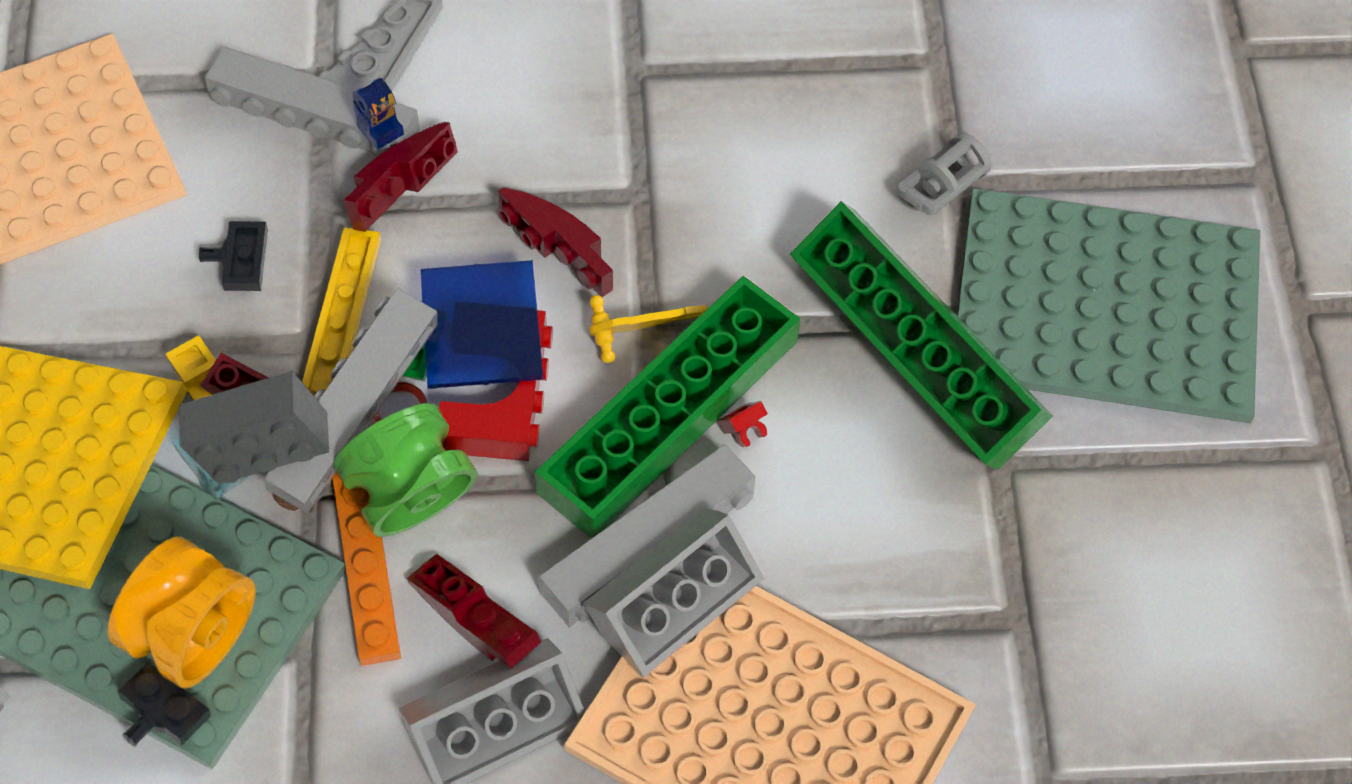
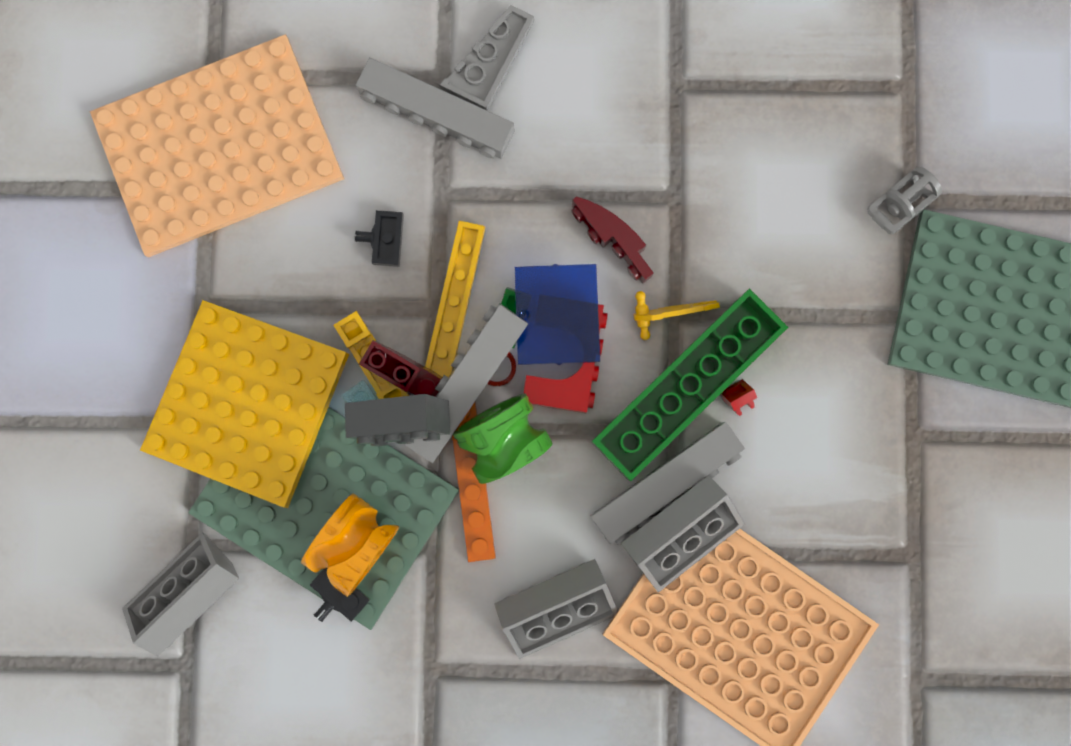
camera: 10 degrees right, 25 degrees up
(377, 114) = (485, 135): clear blue leg -> none
(400, 168) = (500, 172): dark red slope -> none
(472, 613) = (546, 536): dark red slope -> none
(921, 336) = (873, 342): green brick -> none

